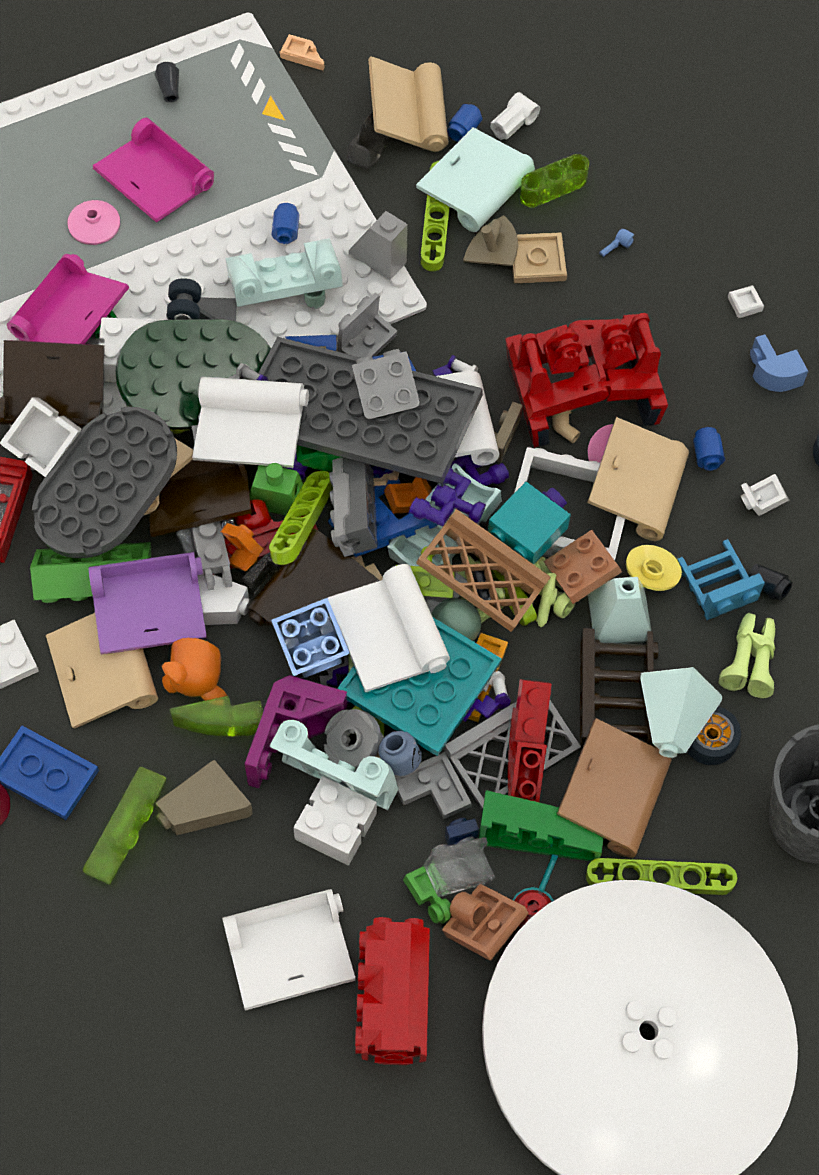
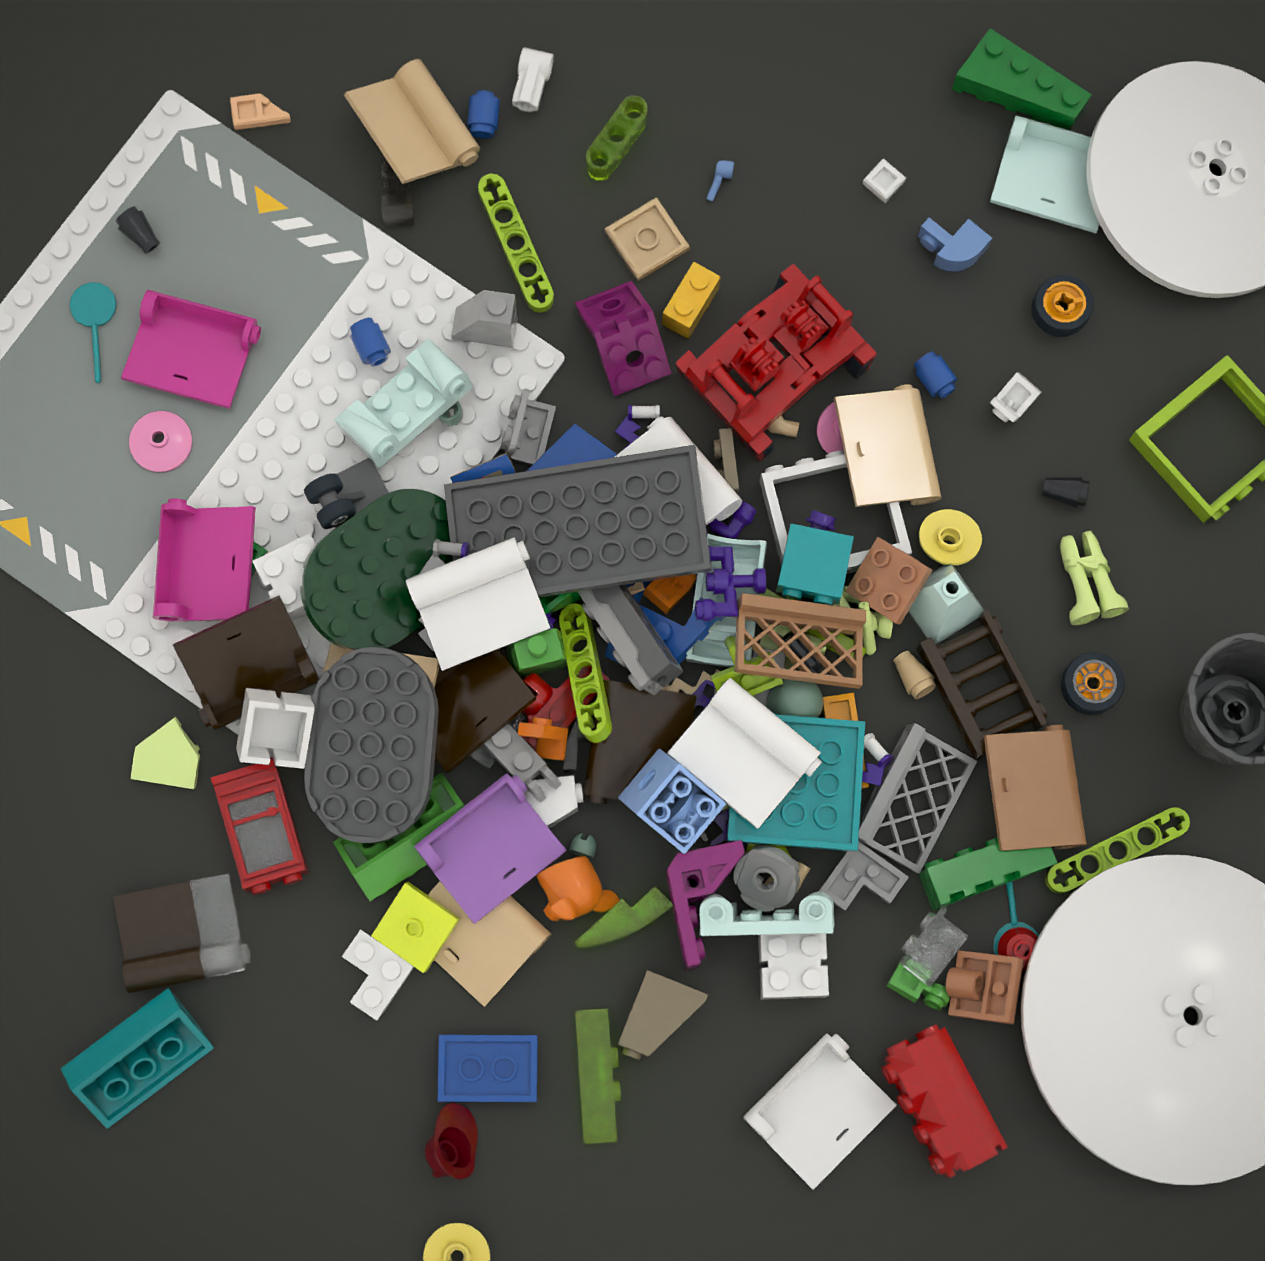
camera: 30 degrees left, 15 degrees up
(56, 638) = (415, 927): none -> neon yellow plate
(103, 117) = (93, 307): none -> teal piece
(226, 646) = (583, 848): none -> sand green hinge
(385, 384) = (595, 491): light grey bracket -> none
(400, 752) = (820, 869): sand blue head -> none
(461, 829) = (913, 909): dark blue plate -> none
(476, 177) = (539, 179): light aqua door -> none
(482, 298) = (621, 324): none -> magenta bracket
(494, 244) = (595, 247): dark tan shield -> none
(526, 740) = (930, 792): red slope -> none
(545, 308) = (691, 300): none -> yellow piece
(565, 656) = (914, 675): none -> tan cone
(677, 707) = (1056, 684): light aqua slope -> none
(729, 596) = (1032, 532): dark azure plate -> none

